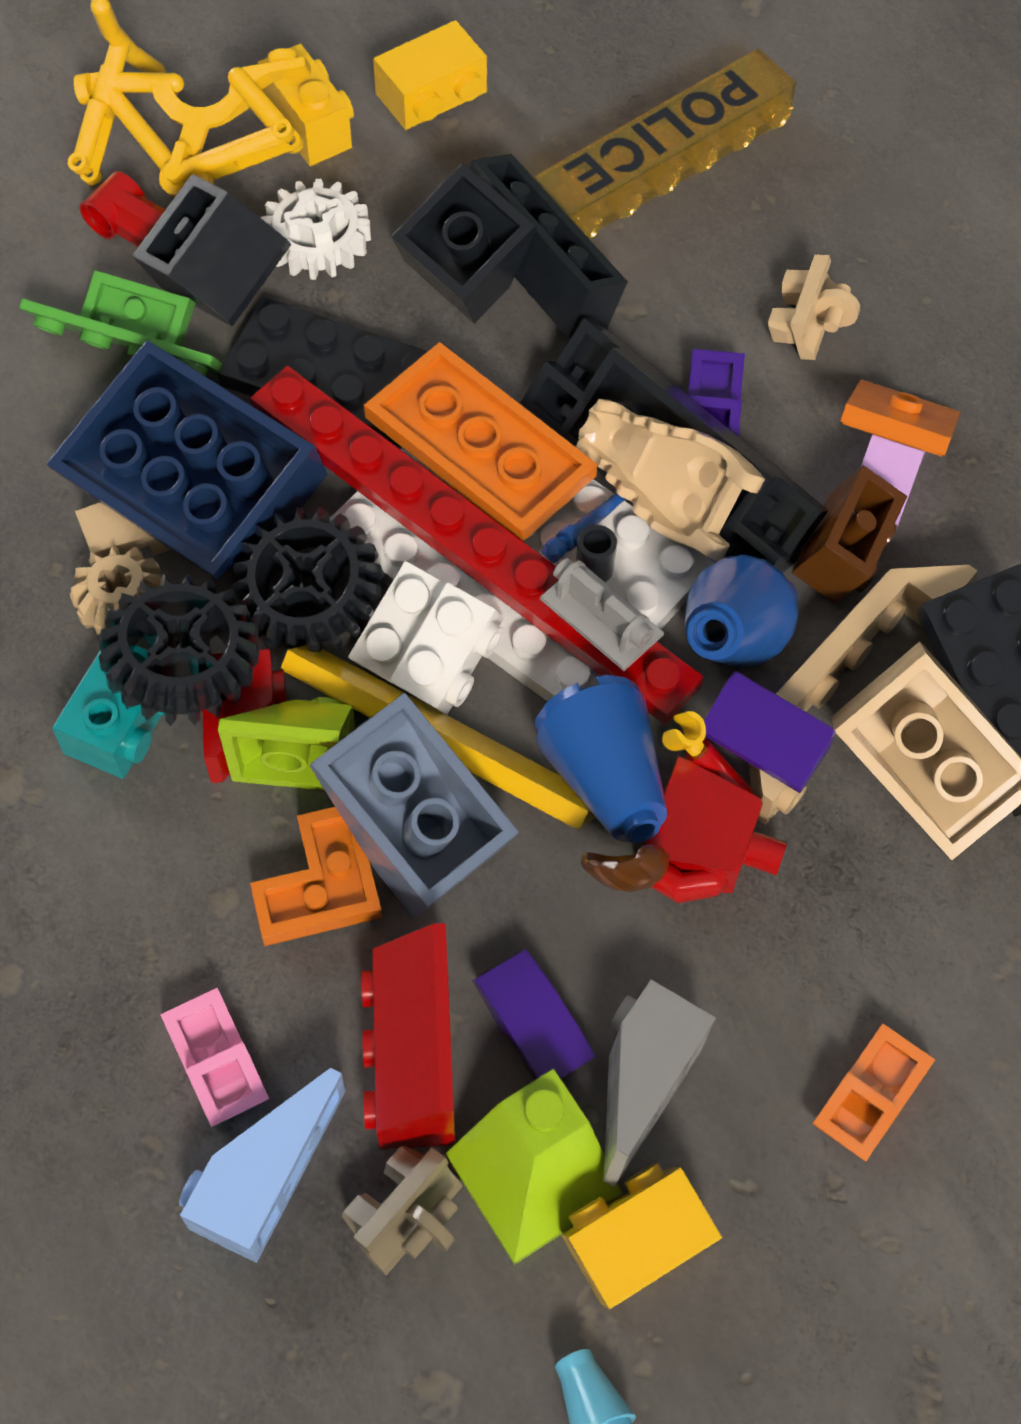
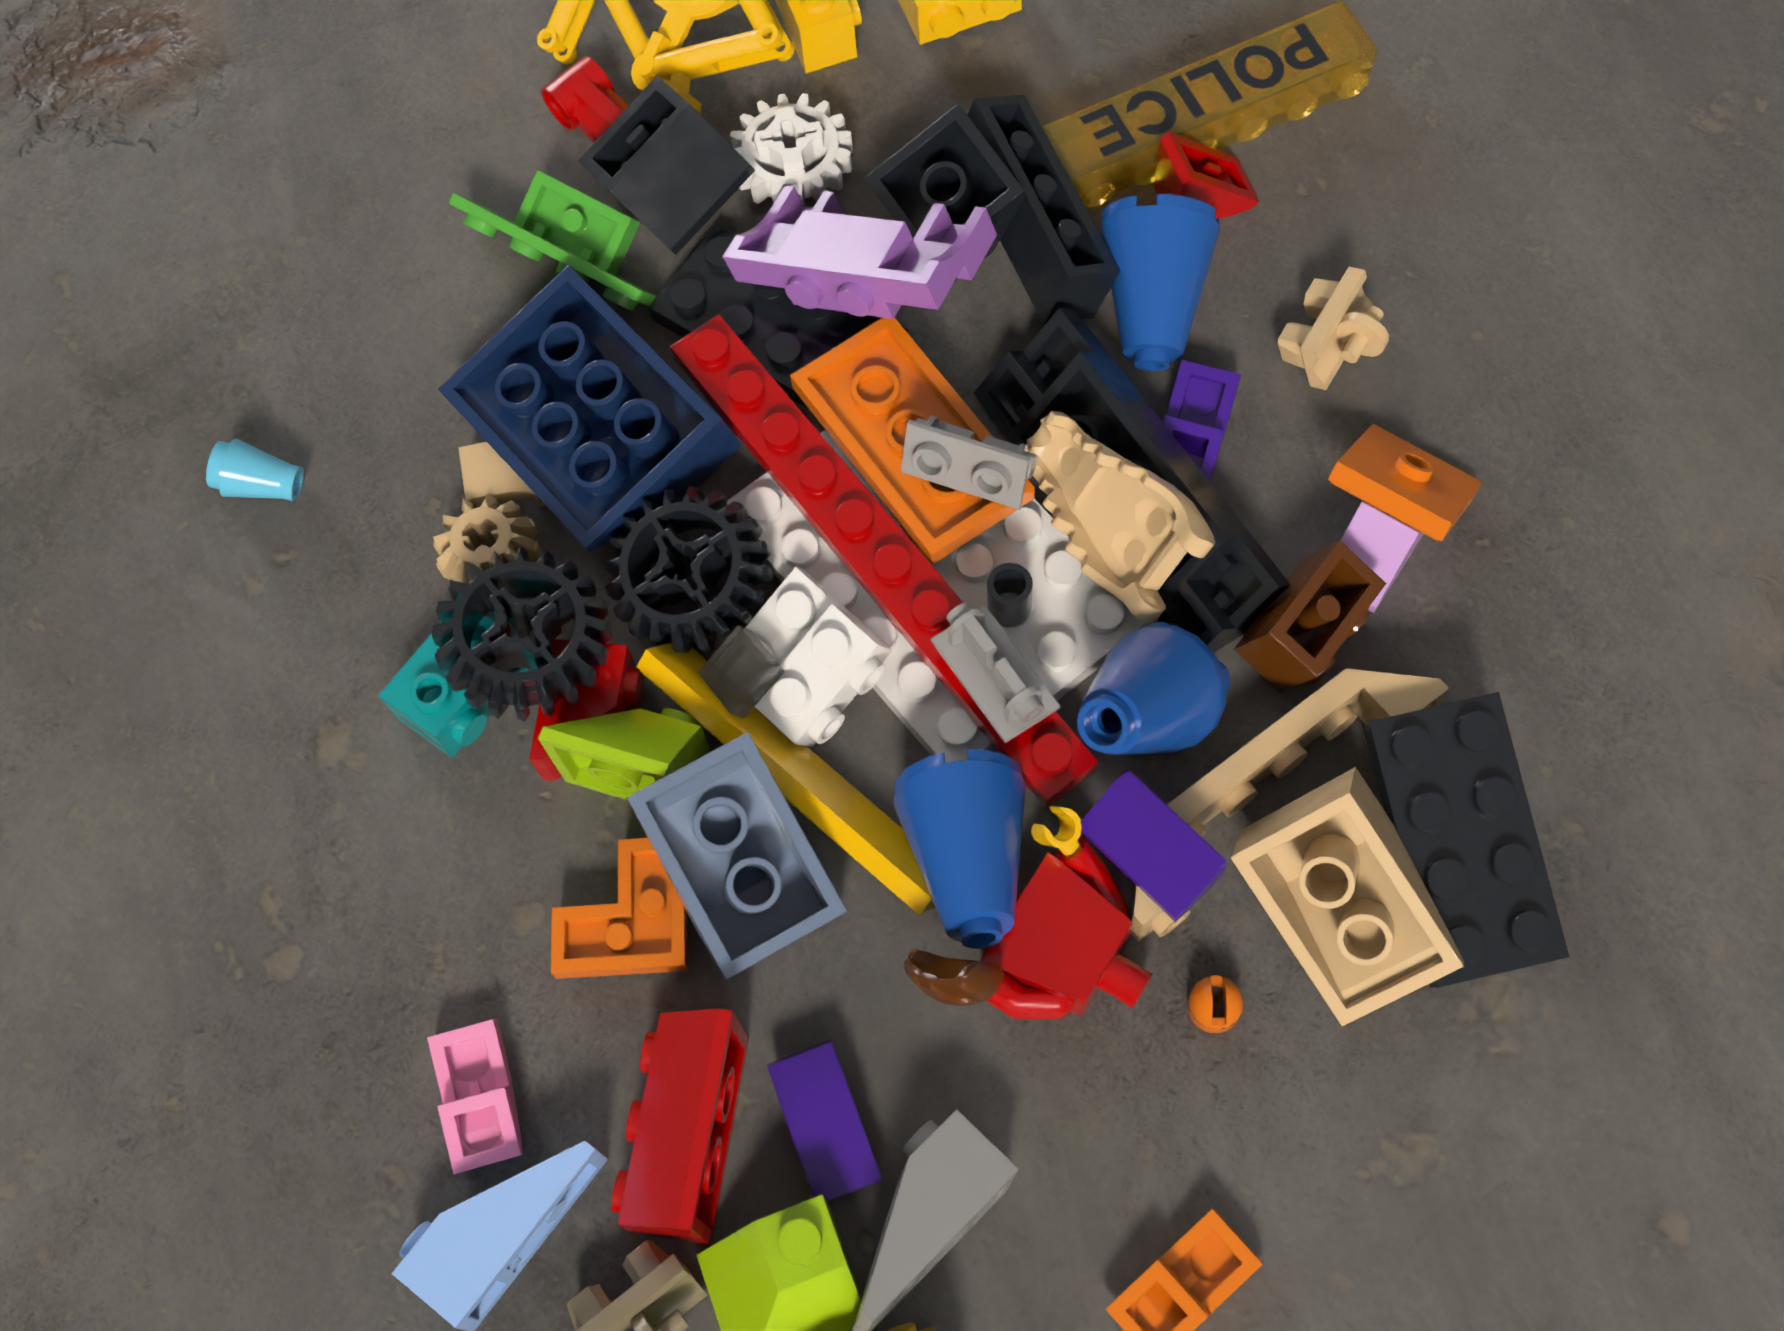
camera: 20 degrees right, 5 degrees up
(377, 655) = (741, 671): none -> clear smoke tile
(401, 300) = (858, 260): none -> medium lavender bracket
(537, 450) = (955, 460): none -> light grey hinge
(567, 538) = (967, 578): blue piece -> none
(662, 277) = (1162, 273): none -> blue cone
(670, 209) = (1203, 174): none -> red slope
(832, 862) = (1201, 1004): none -> orange hinge

